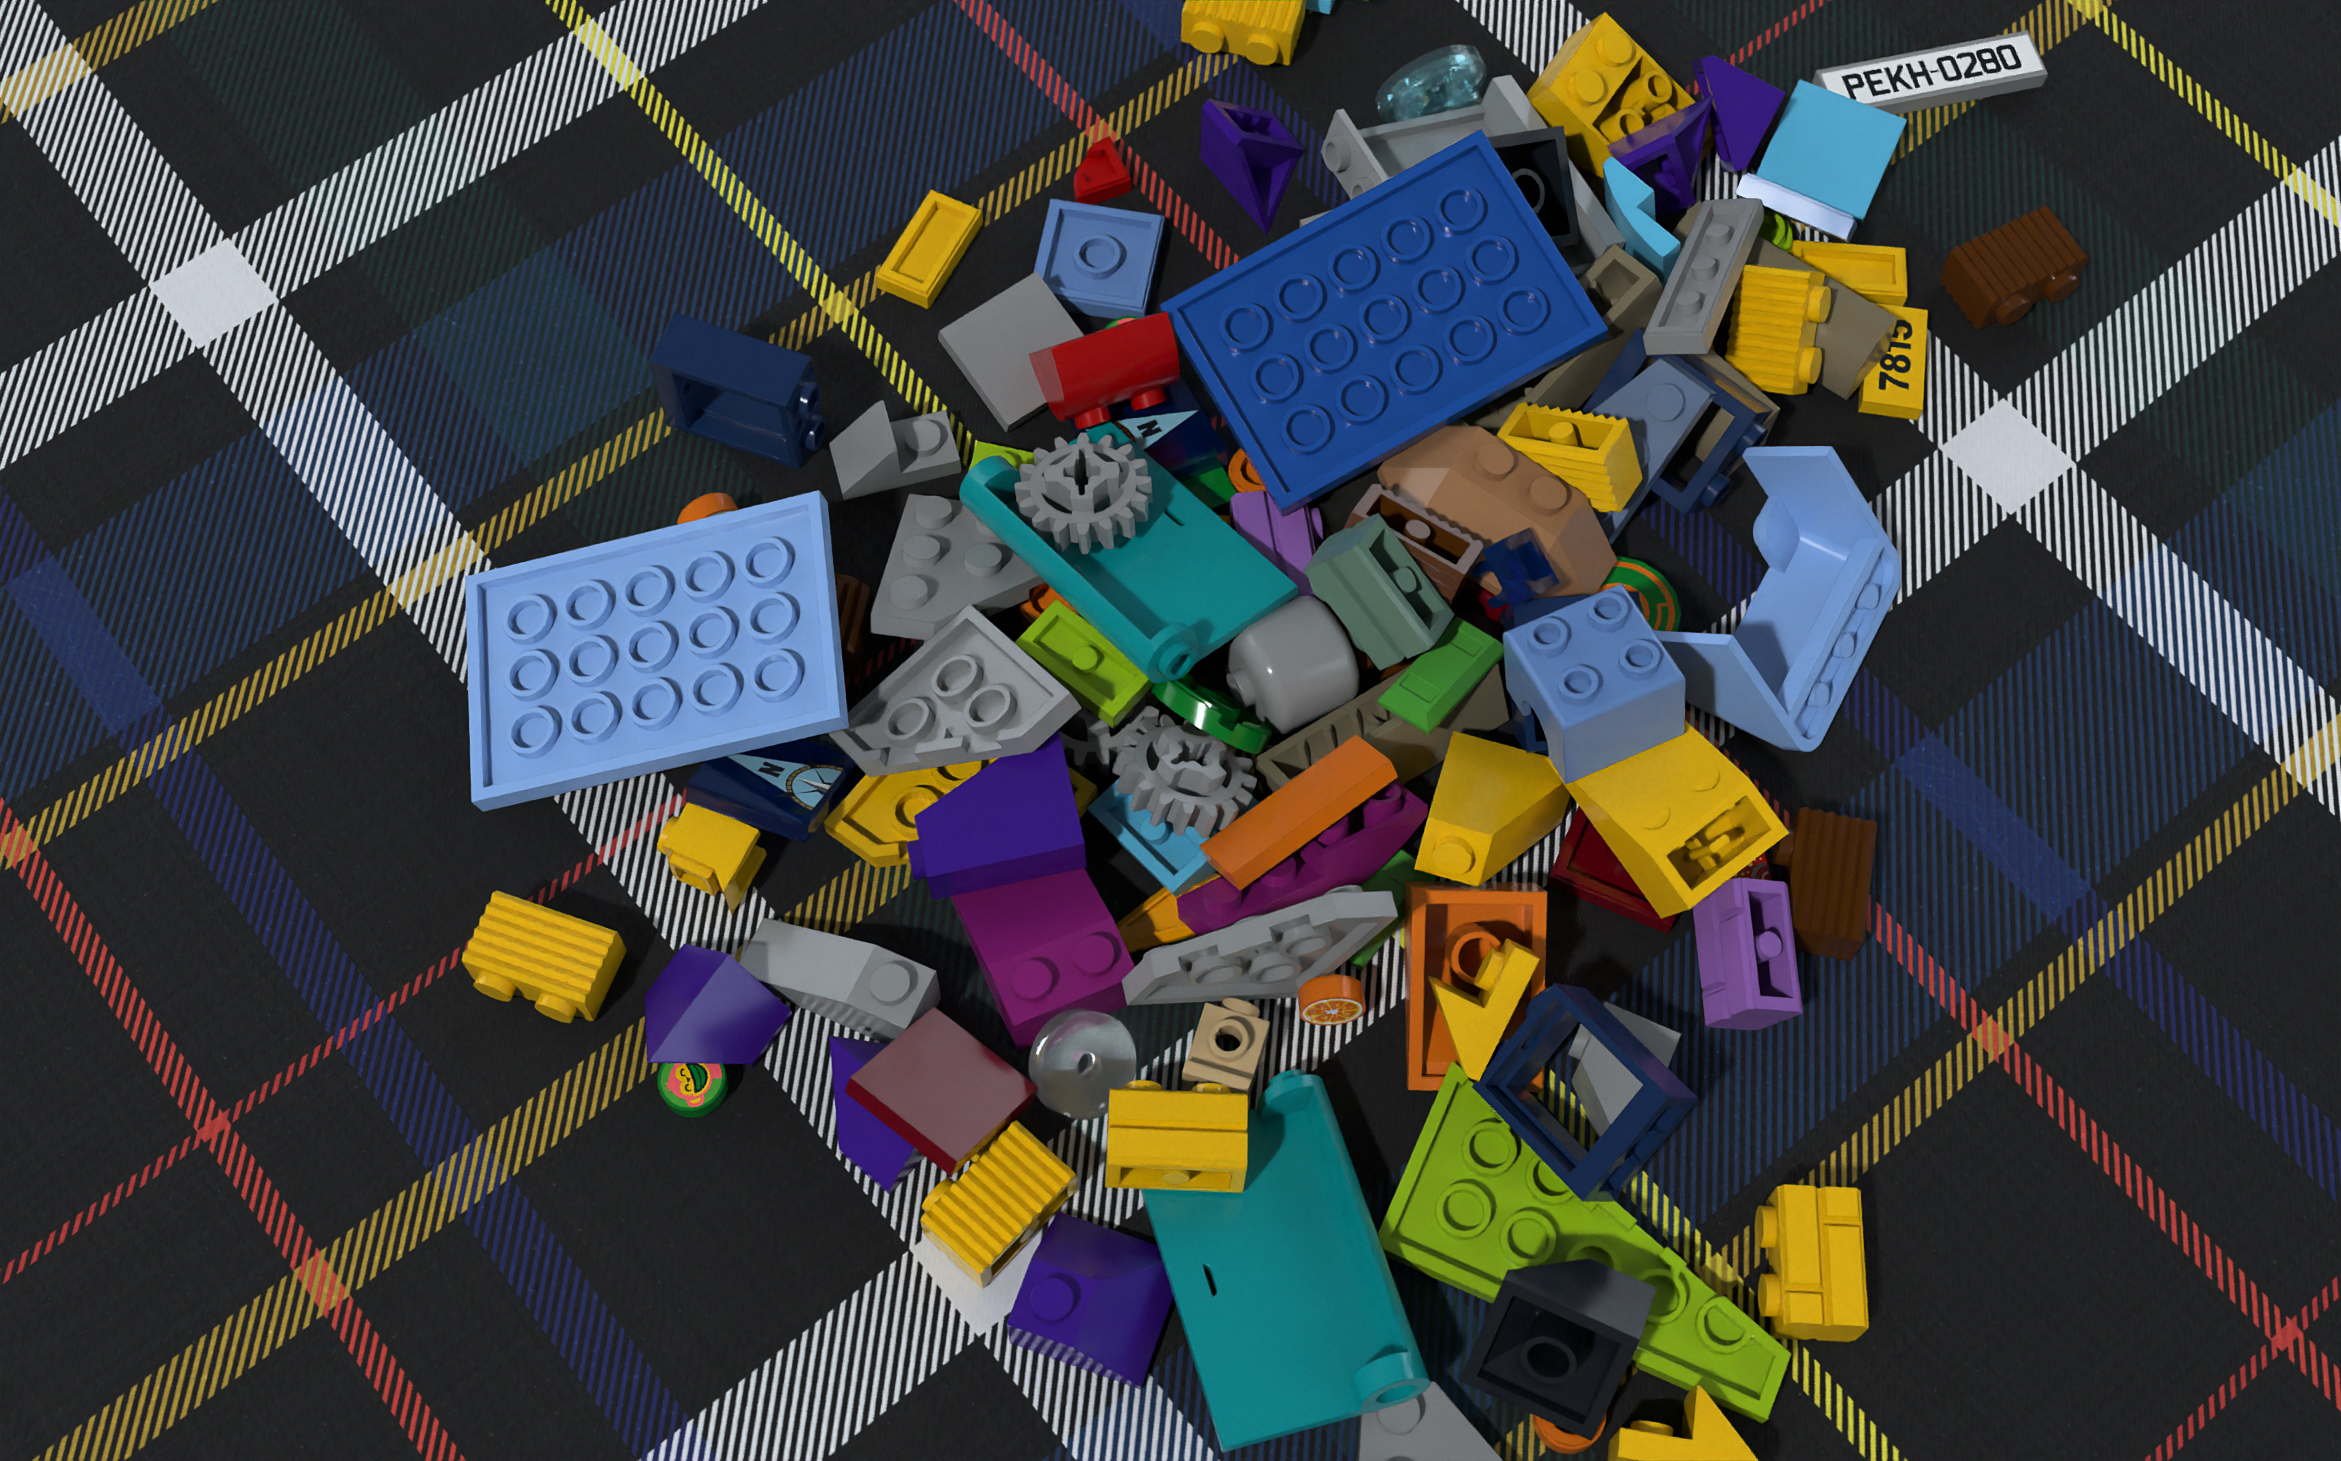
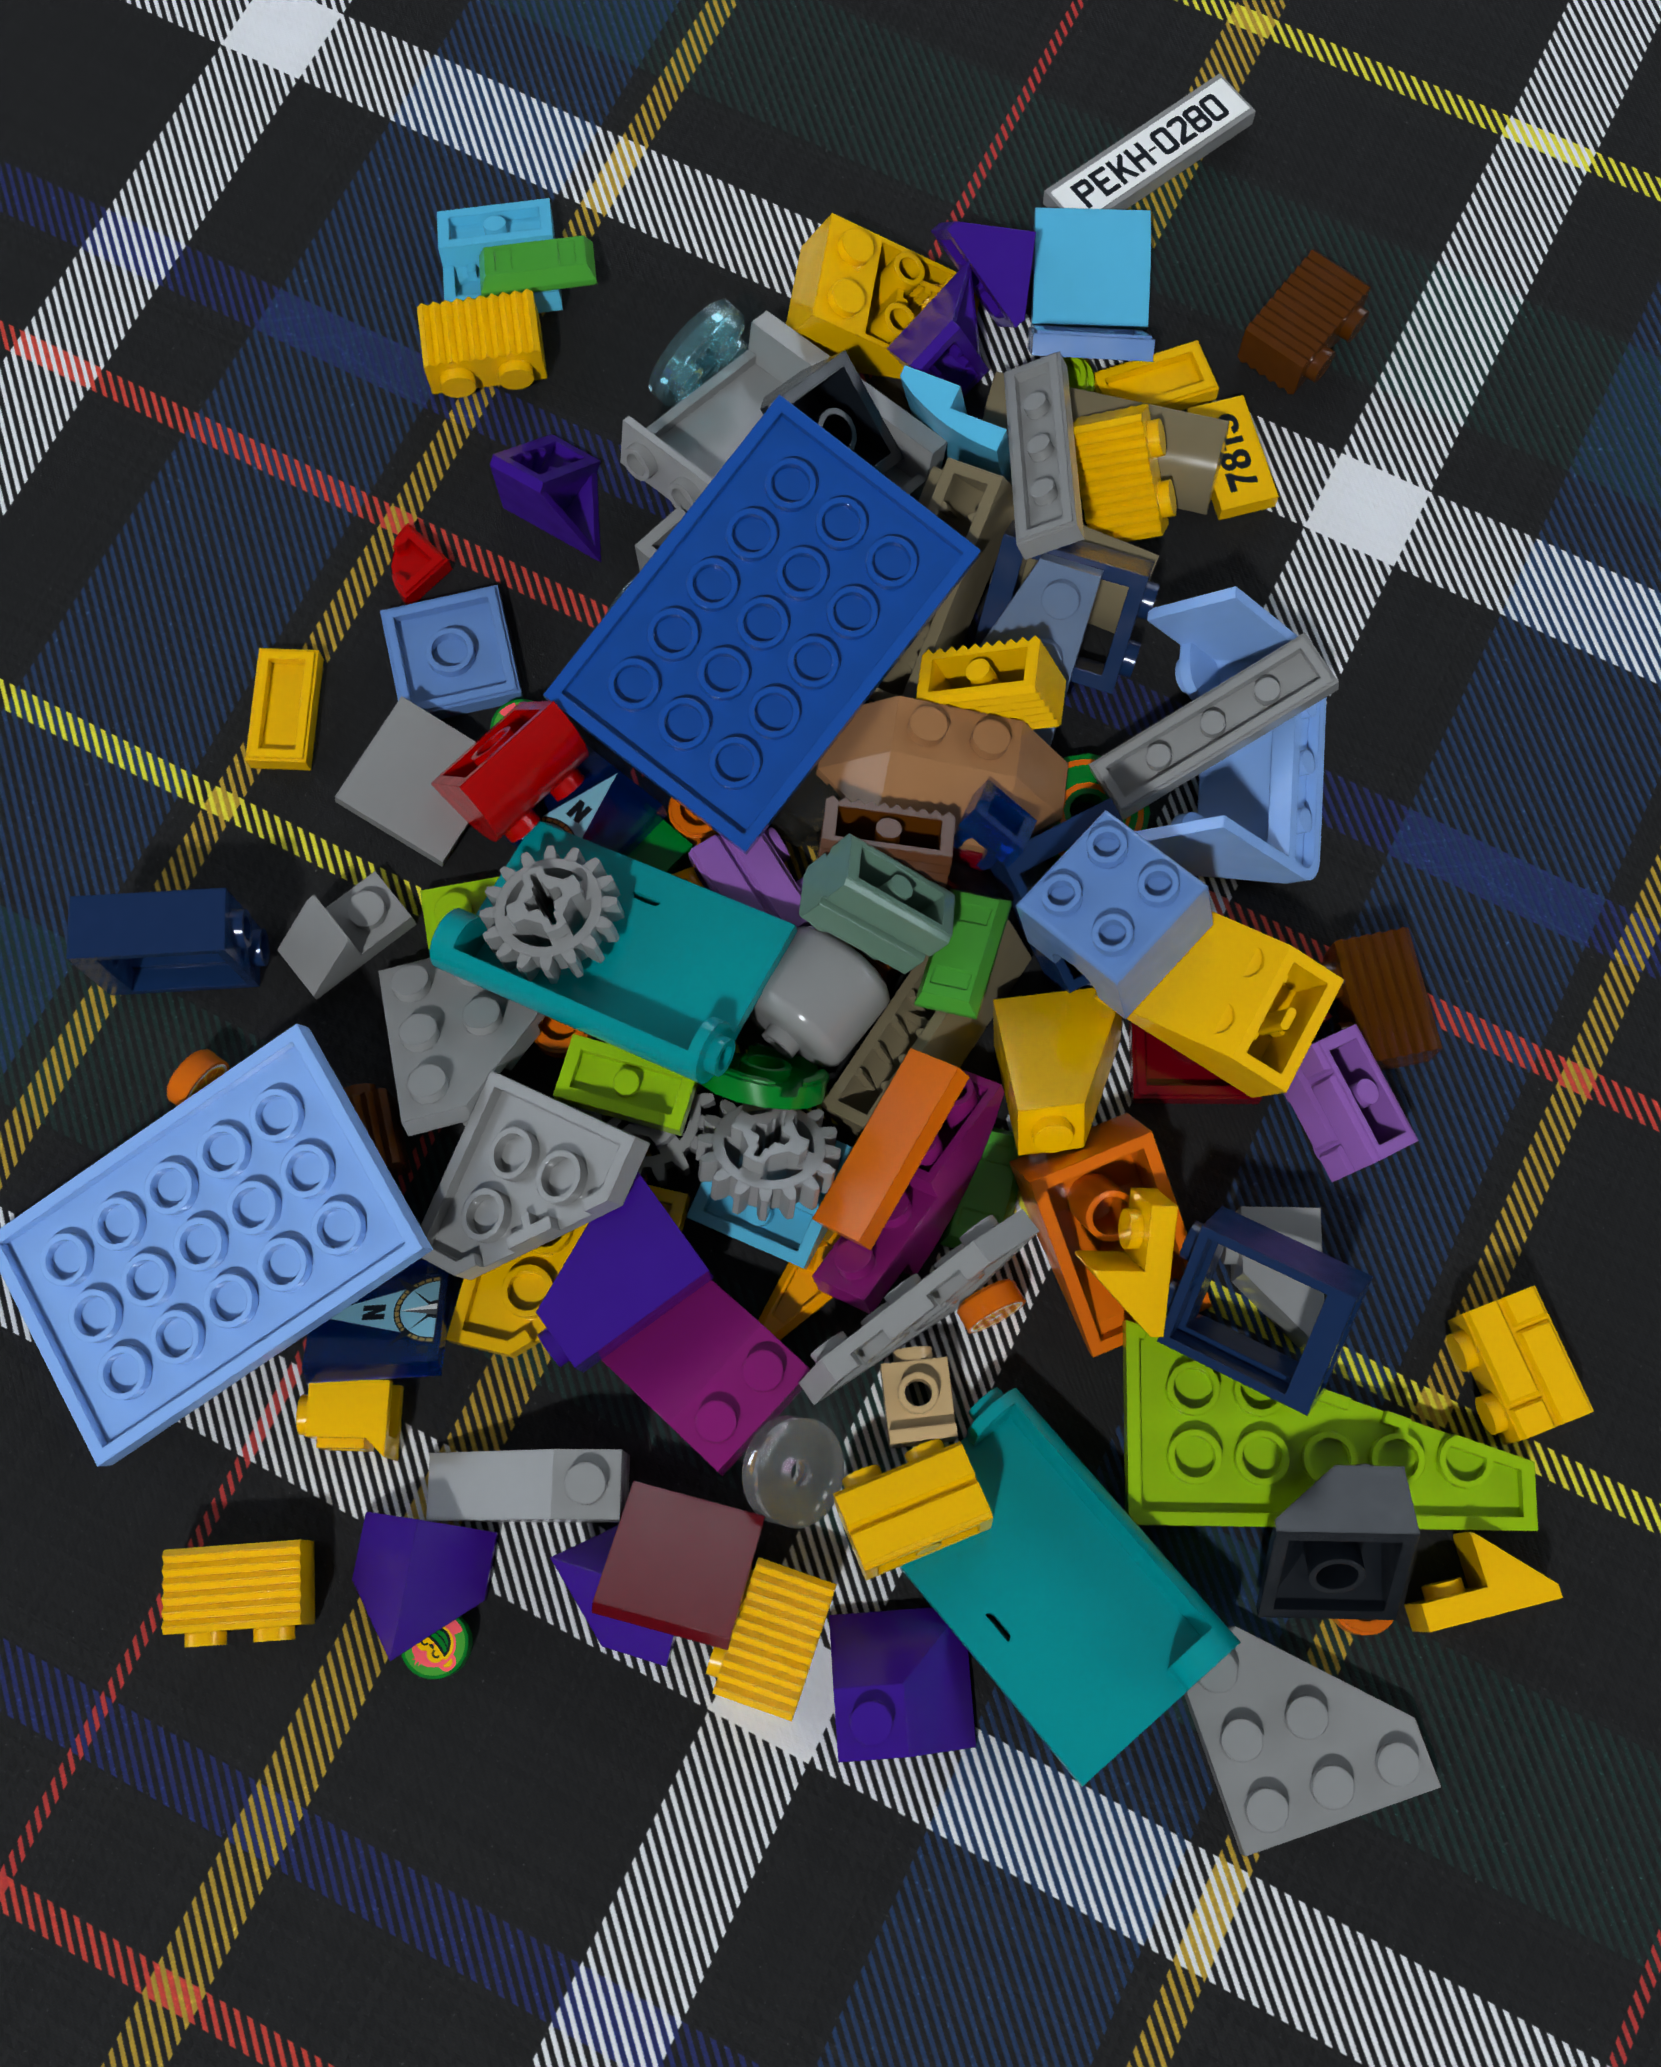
camera: 20 degrees left, 10 degrees up
(1768, 576) = (1214, 726): none -> light grey tile

